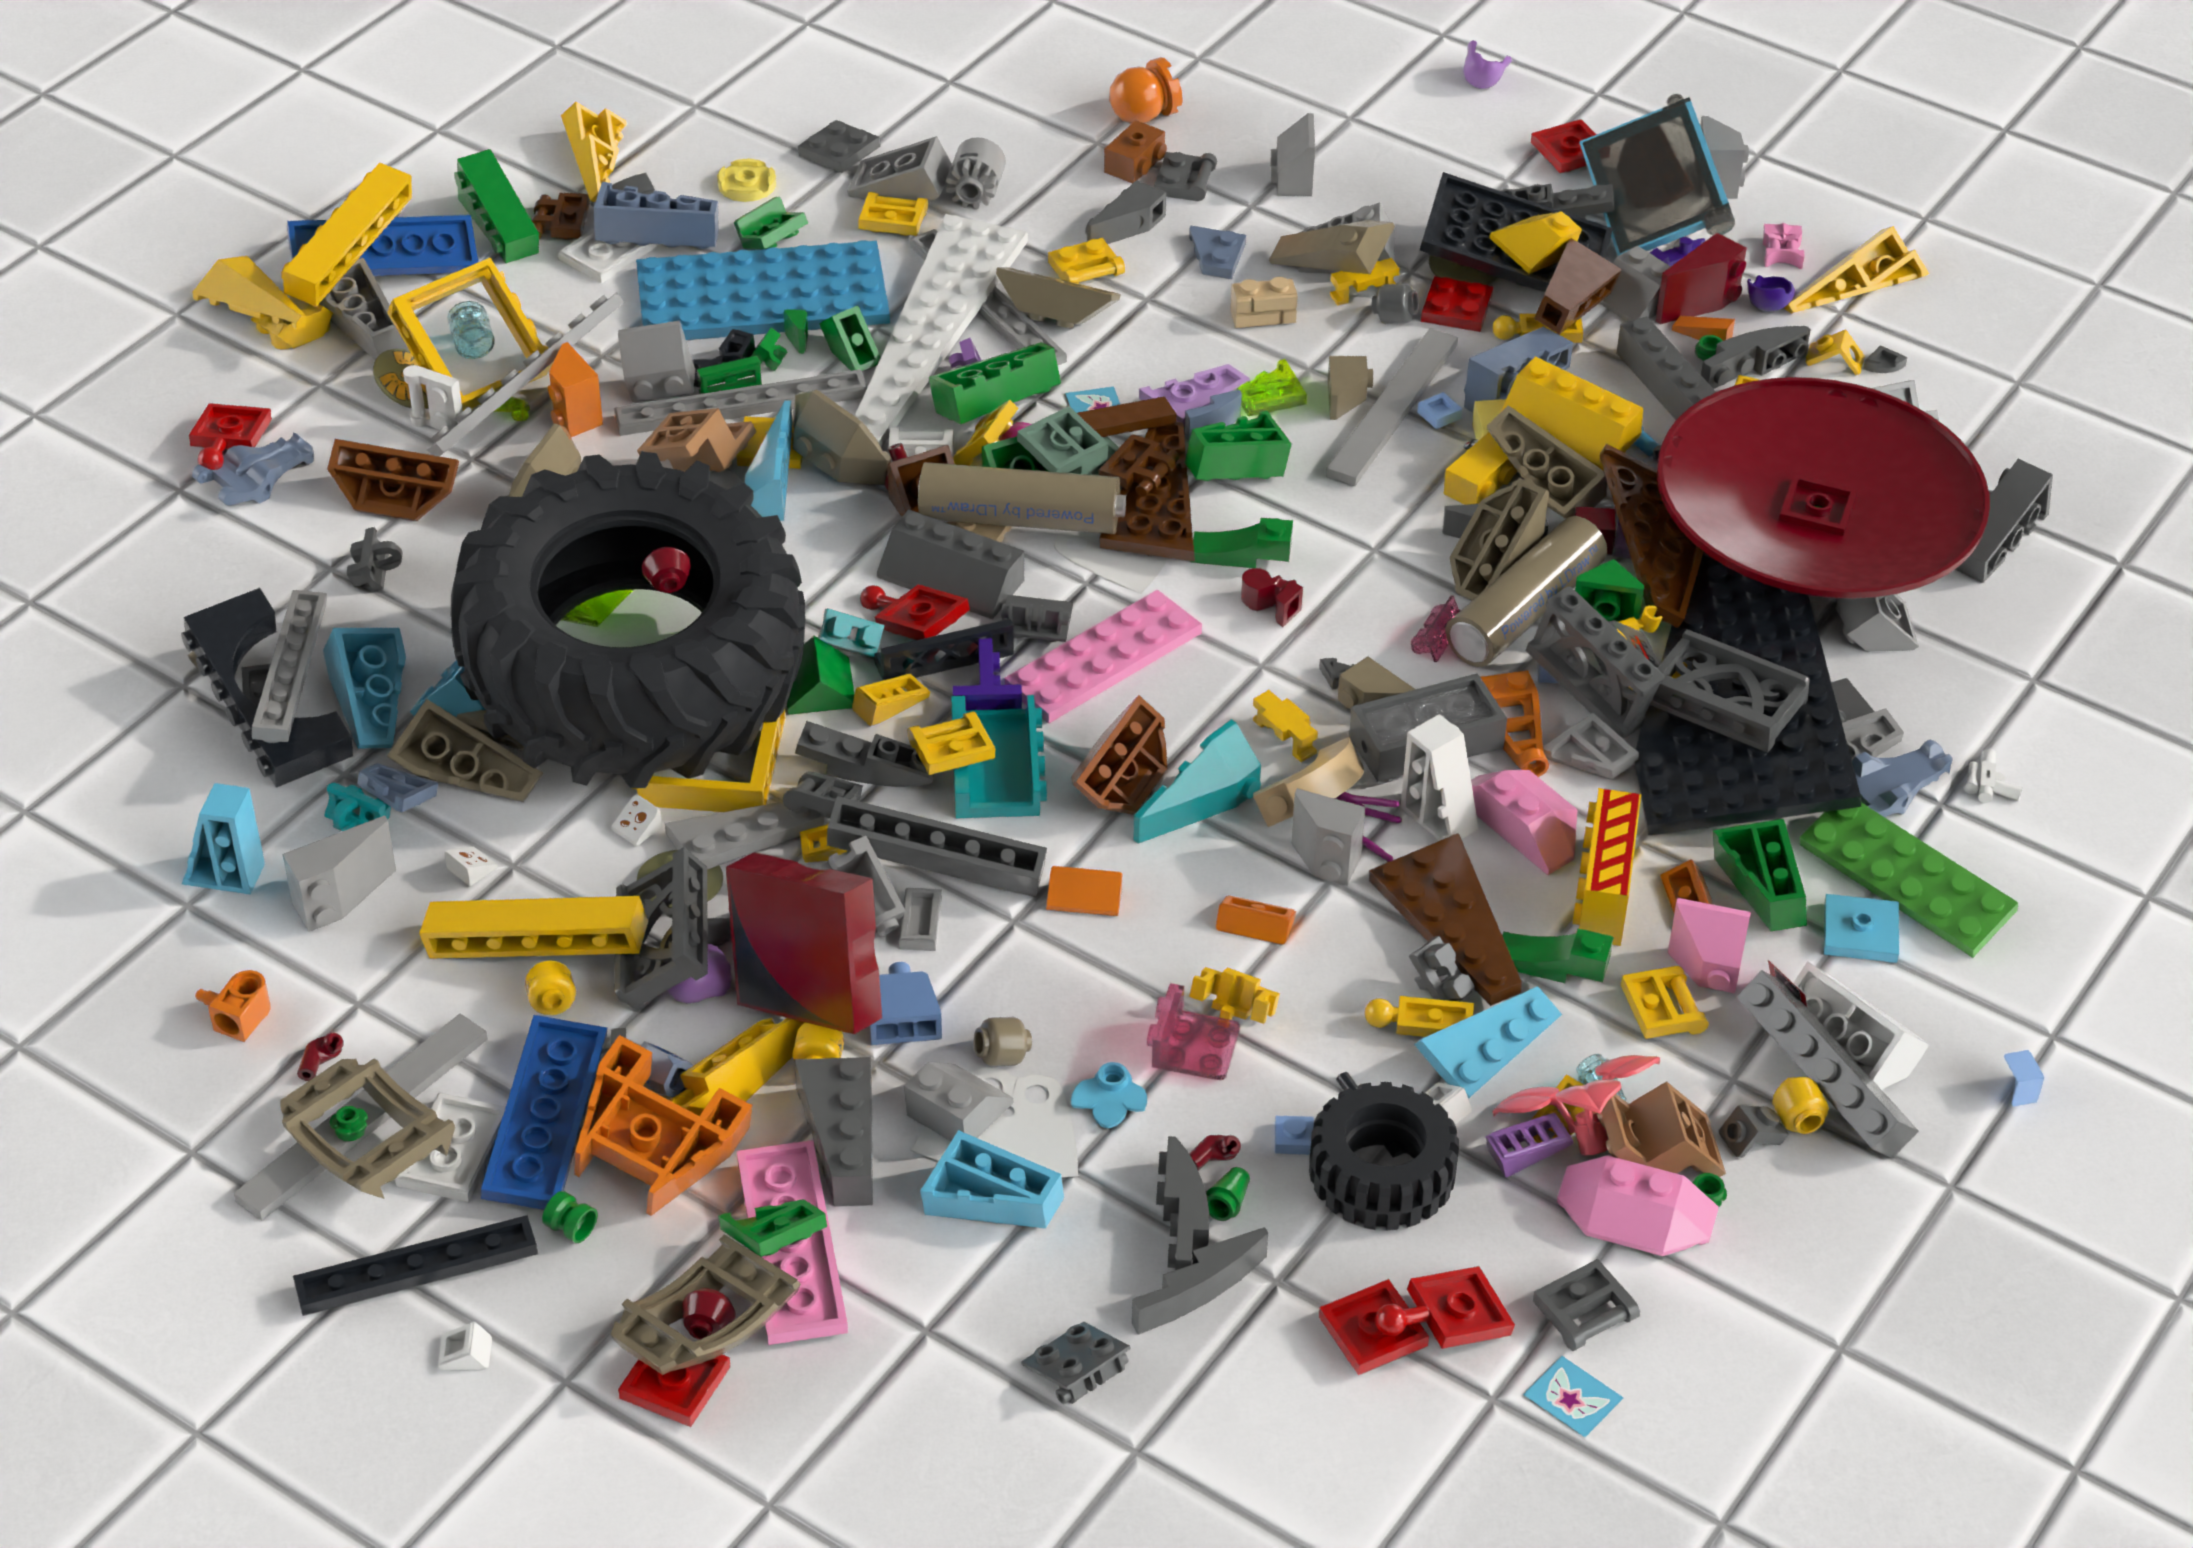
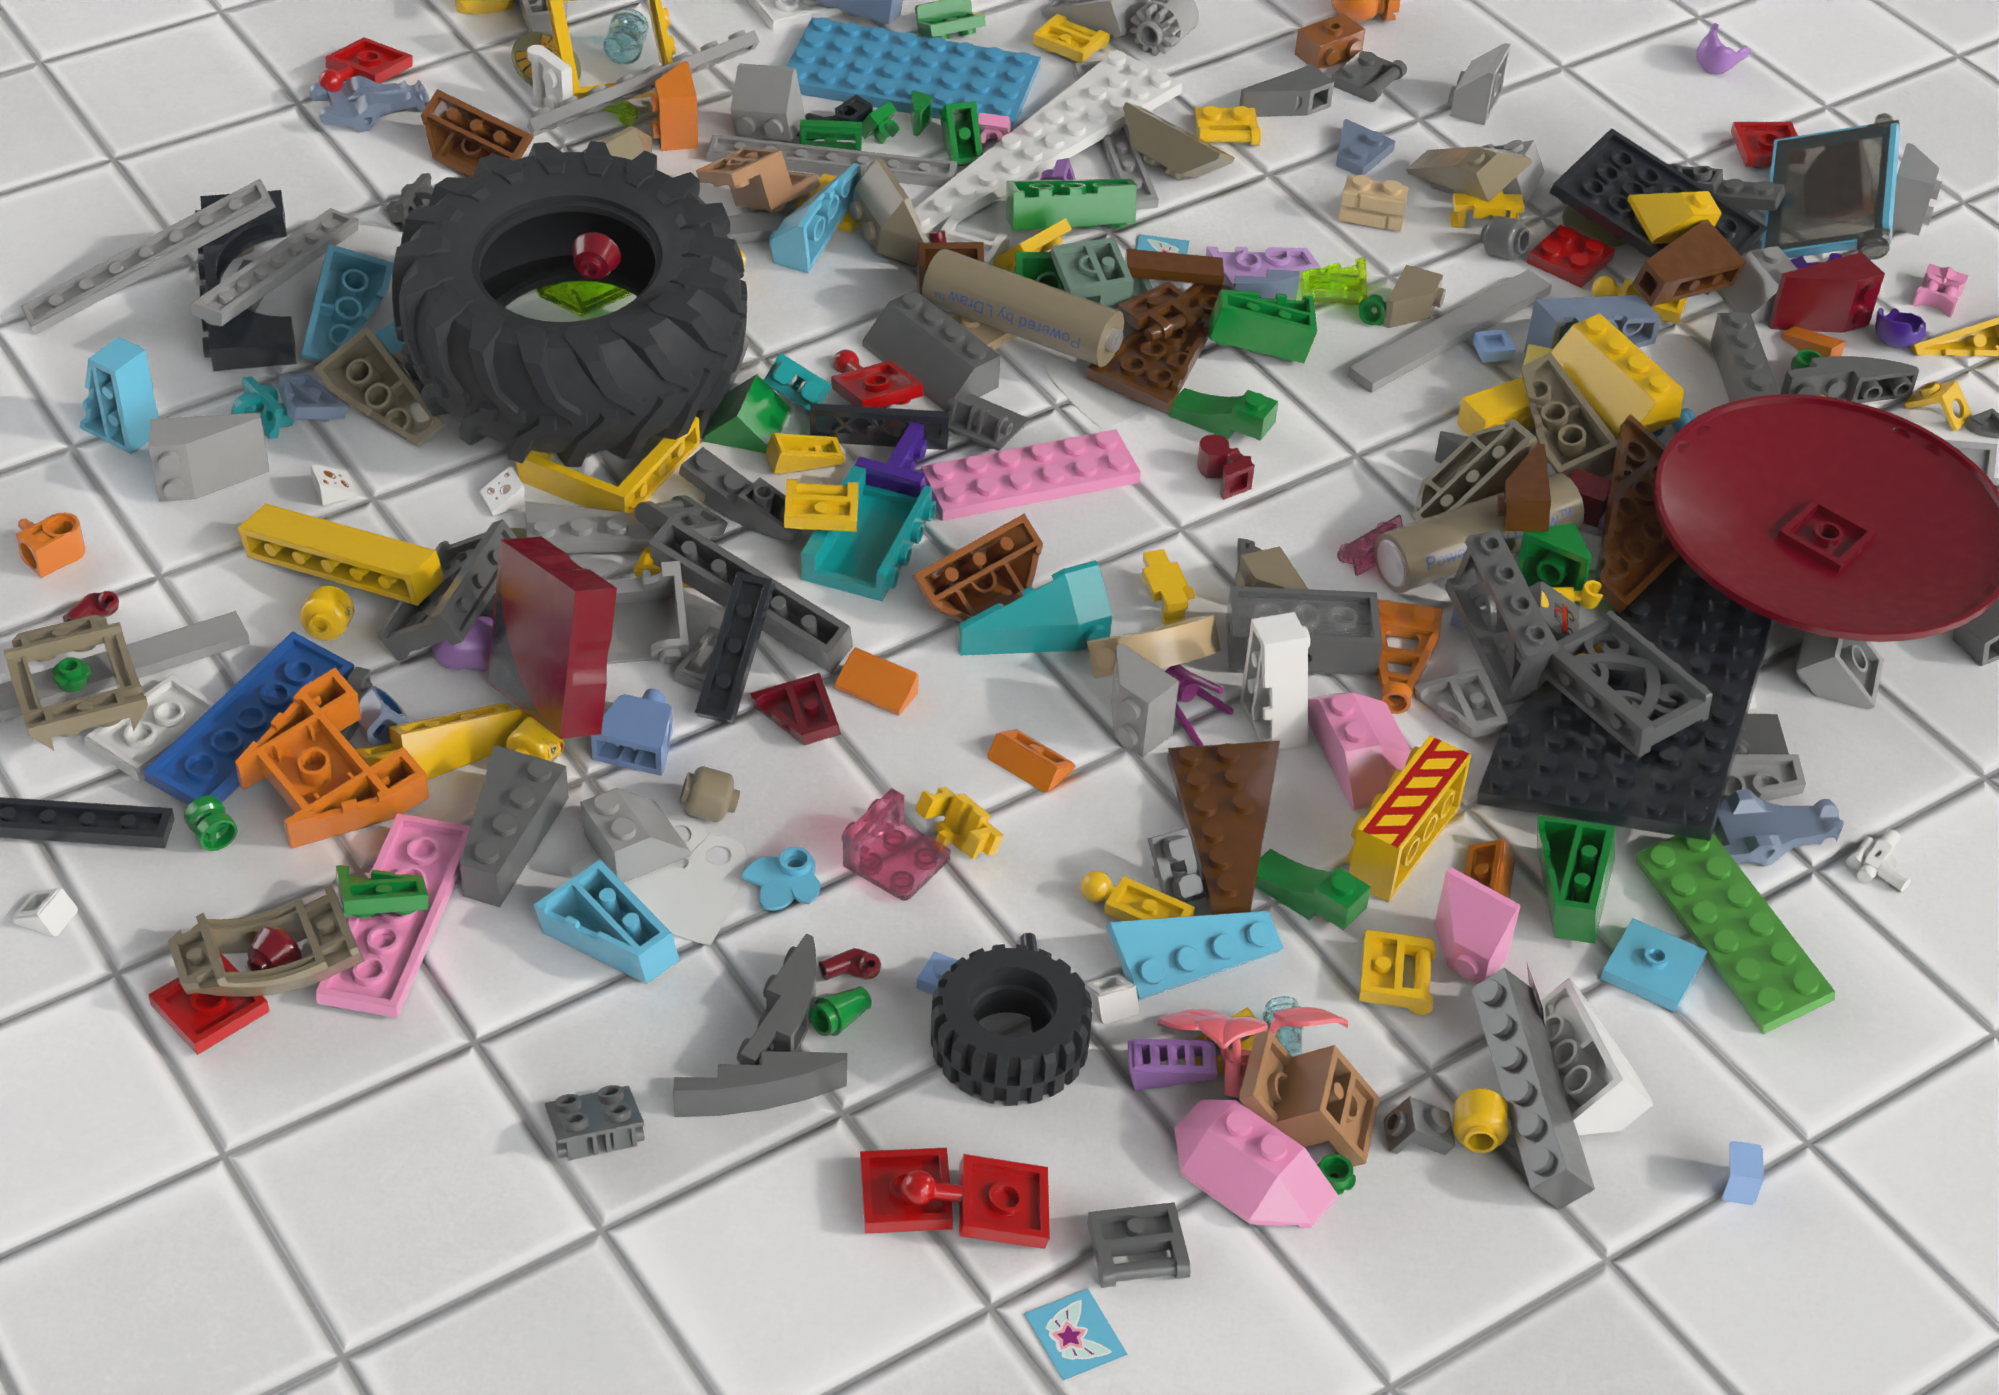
camera: 20 degrees right, 0 degrees up
(159, 694) = (147, 256): none -> light grey tile
(880, 324) = (993, 127): none -> bright pink tile
(954, 900) = (735, 648): none -> black plate
(1033, 938) = (799, 708): none -> dark red wing
(1314, 414) = (1365, 310): none -> green plate
(1568, 547) = (1527, 495): none -> reddish brown slope

